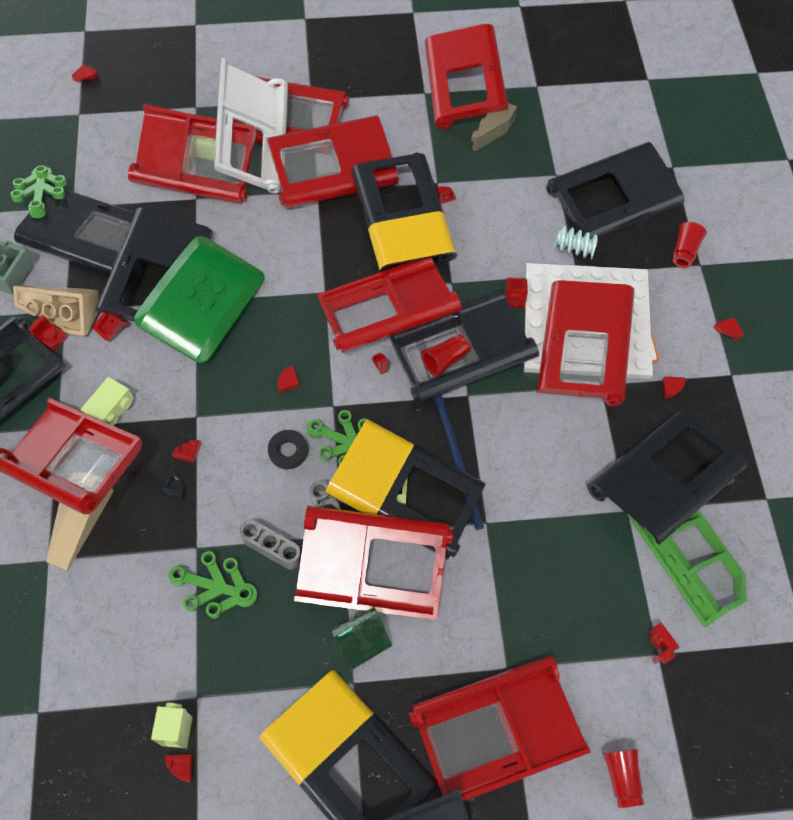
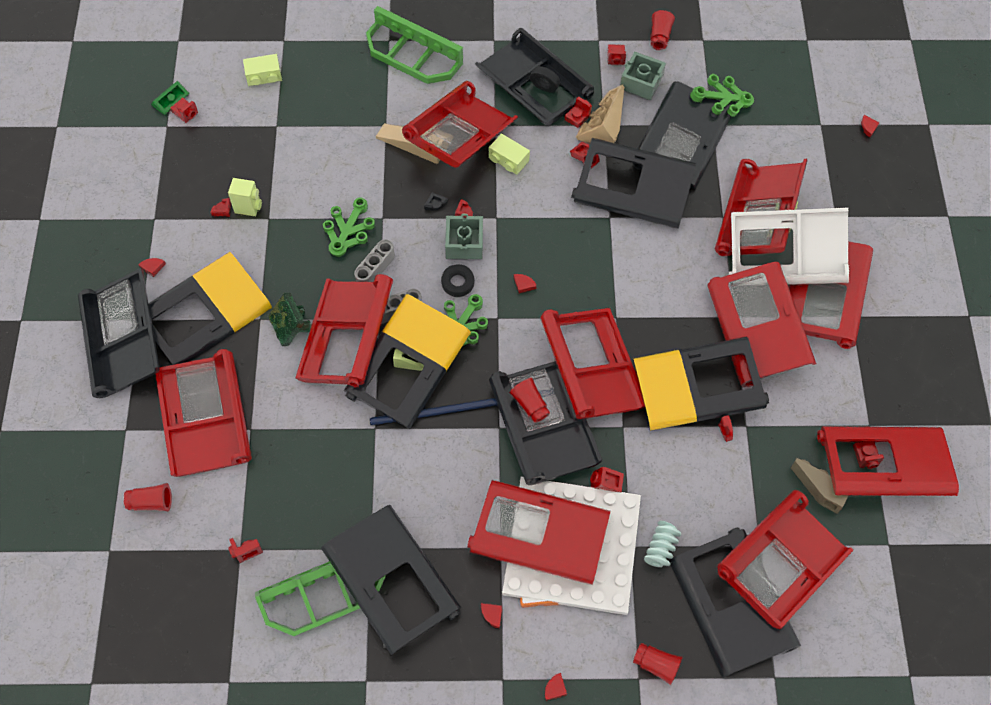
camera: 95 degrees right, 0 degrees up
(199, 299) = (606, 215): green wedge -> none
(232, 441) = (464, 237): none -> sand green brick
(380, 362) = (534, 355): red tile -> none
(459, 92) = (867, 454): none -> red bracket
(576, 148) = (779, 556): none -> red piece

